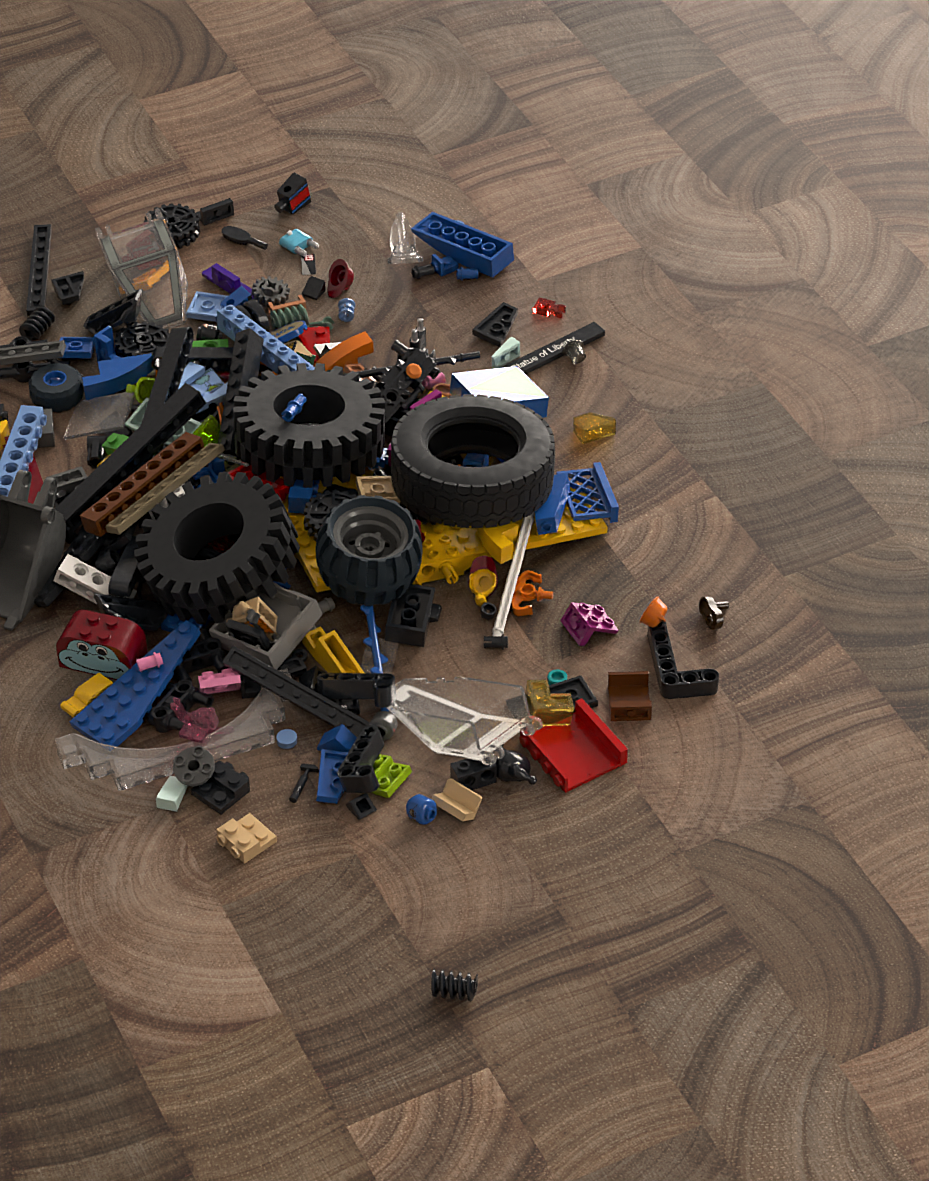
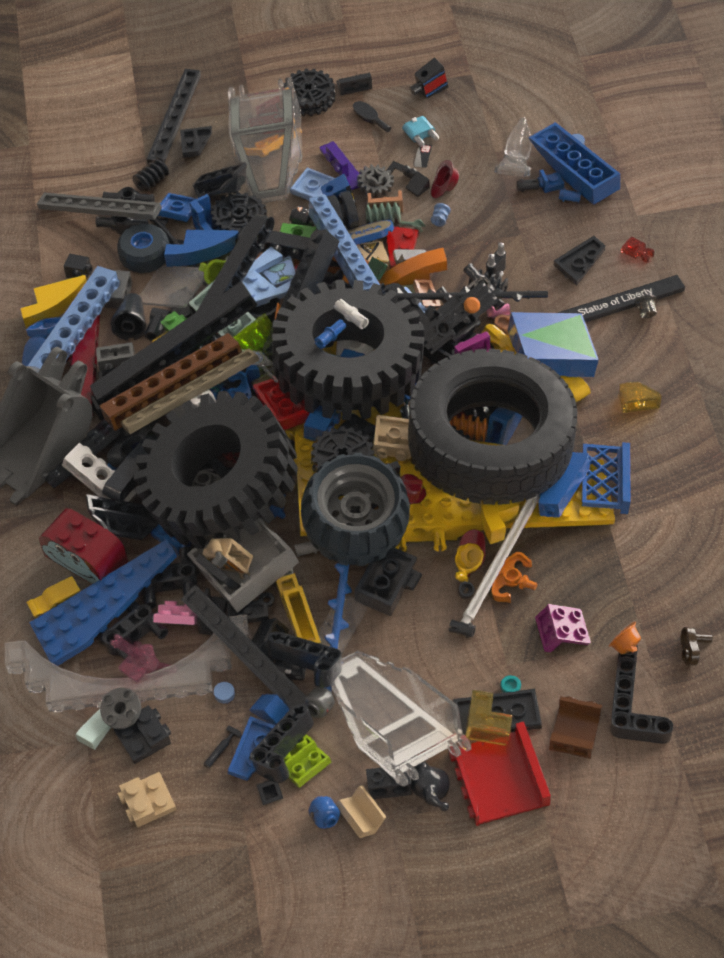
camera: 20 degrees right, 10 degrees up
(67, 450) = (129, 318): none -> black cone
(149, 661) = (116, 580): bright pink pin -> none
(297, 278) = (407, 171): none -> black piece
(307, 389) = (351, 314): none -> white pin
(506, 353) = (578, 294): light aqua slope -> none

